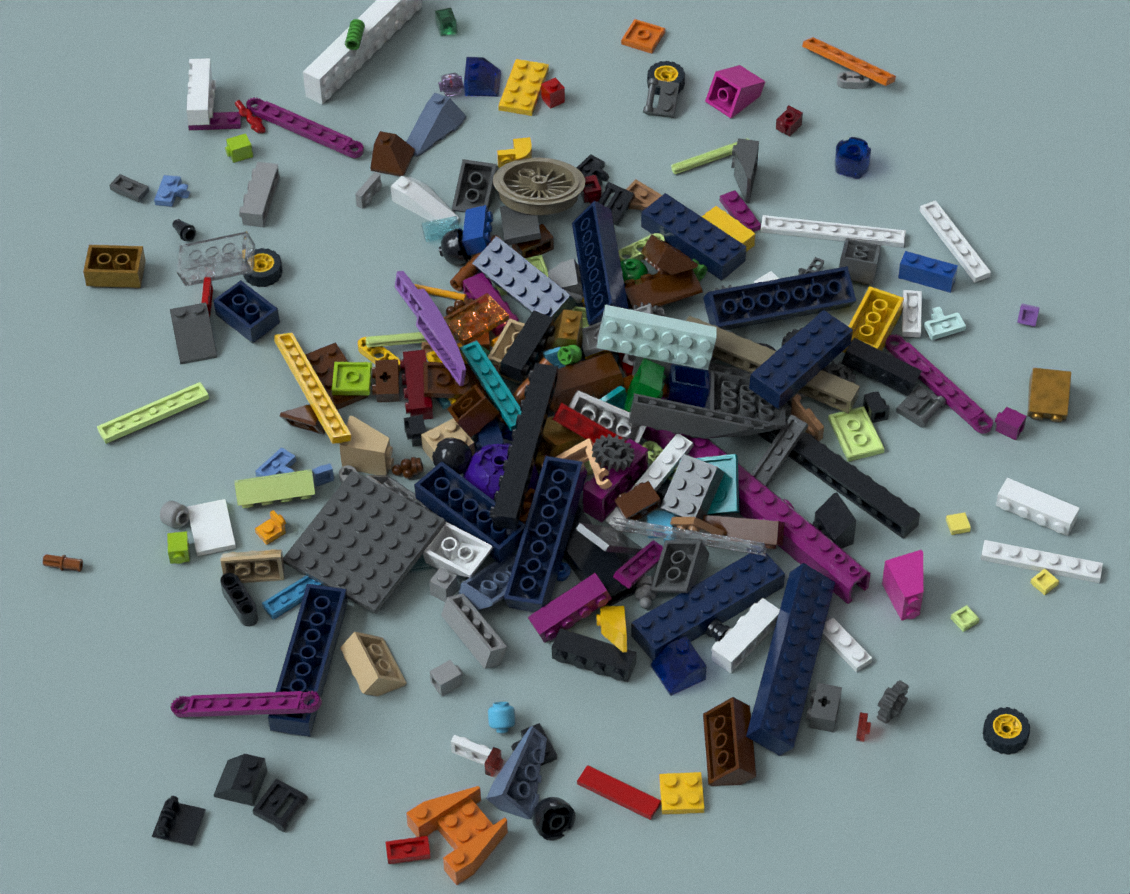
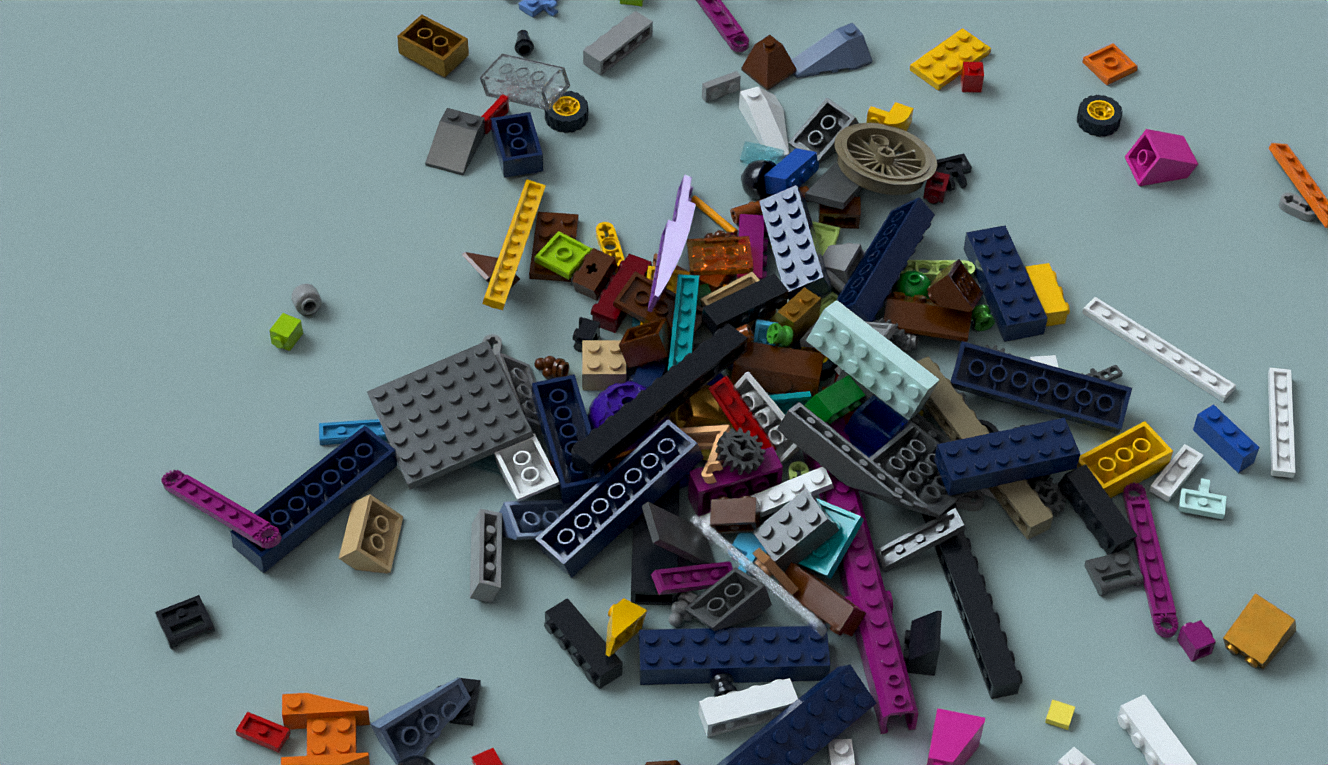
camera: 30 degrees right, 0 degrees up
(63, 562) = (178, 292): dark orange axle -> none
(153, 412) = (363, 196): yellowish green plate -> none
(178, 822) = (86, 586): black hinge -> none
(211, 527) = (331, 329): white tile -> none
(239, 599) = (300, 408): black beam -> none
(242, 779) = (171, 579): black slope -> none
(254, 565) = (335, 383): tan slope -> none
(271, 528) = (383, 359): light orange bracket -> none
(274, 487) = (412, 321): yellowish green brick -> none
(277, 464) = (434, 303): medium blue plate -> none
(323, 474) = (467, 332): medium blue plate -> none
(368, 449) = (520, 327): tan slope -> none
(395, 339) = (637, 240): yellowish green axle -> none
(443, 584) = (493, 494): light grey brick -> none
(446, 677) = (427, 586): light grey brick -> none
(451, 84) = (878, 23): clear purple head -> none
(453, 453) = (593, 375): black cylinder -> none
(470, 750) = (392, 665): white plate -> none
(481, 77) = (913, 30): clear blue slope -> none
(493, 762) = (406, 692): clear red plate -> none
(501, 716) = (447, 653): medium azure head -> none
(563, 575) = (621, 548): blue plate -> none
(570, 608) = (592, 583): magenta brick -> none
(619, 203) = (951, 215): black plate -> none
(643, 195) = (978, 216): medium nougat wing -> none
(667, 98) = (1082, 136): dark grey plate -> none
(679, 666) = (656, 701): clear blue slope -> none
(703, 159) = (1087, 213): yellowish green axle -> none
(739, 210) = (1075, 282): magenta plate -> none
(745, 165) = (1113, 239): dark grey slope -> none
(789, 121) = (1195, 216): dark red brick -> none
(815, 427) = (976, 522): medium nougat wing -> none
(852, 157) = (1233, 283): clear blue brick -> none
(856, 434) = (1023, 565): yellowish green tile -> none
(861, 260) = (1160, 391): dark grey slope -> none
(876, 407) = (1062, 549): black brick -> none
(1028, 315) = (1303, 537): medium lavender tile -> none

